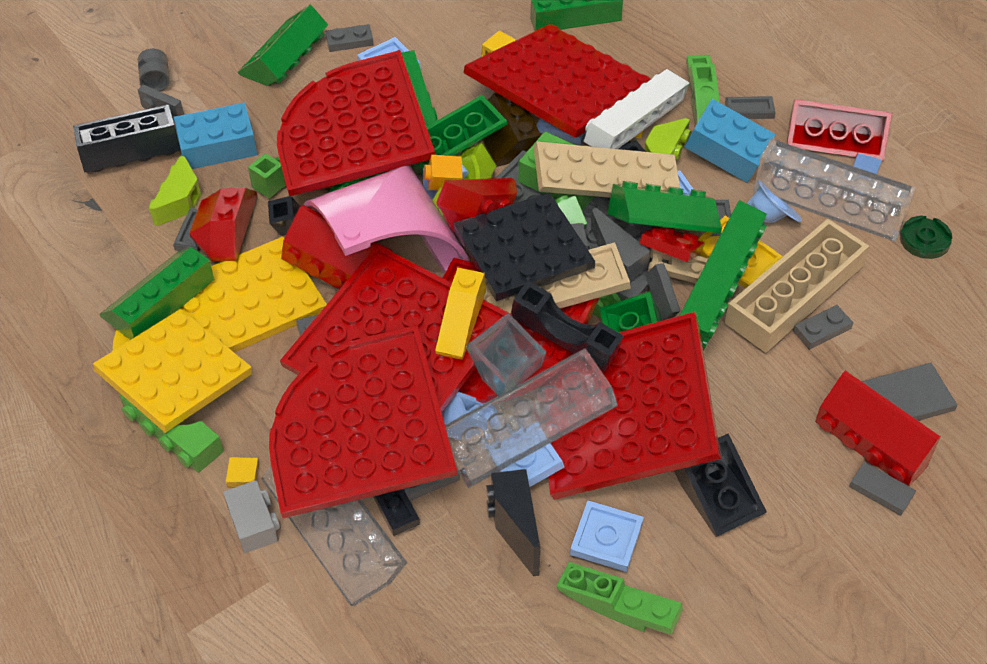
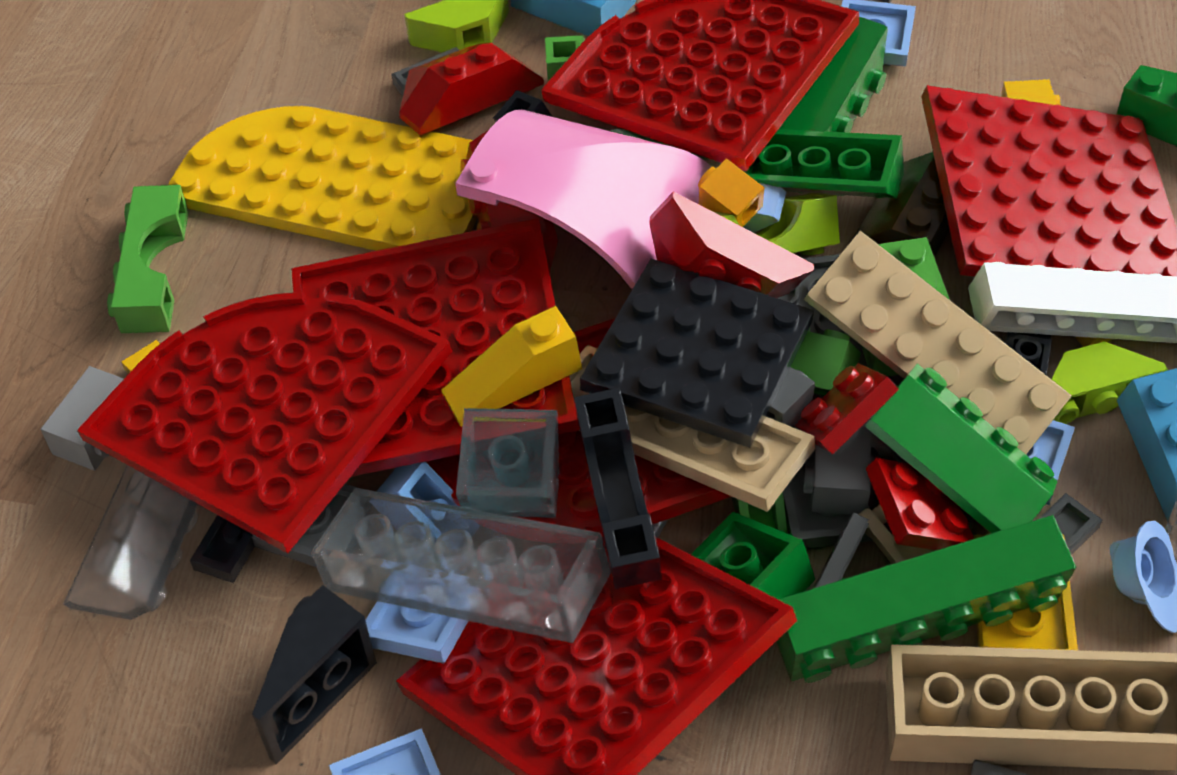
camera: 50 degrees right, 0 degrees up
(160, 293) = (296, 113): green slope -> none
(172, 370) = (208, 200): yellow plate -> none
(609, 221) = (846, 407): none -> red plate

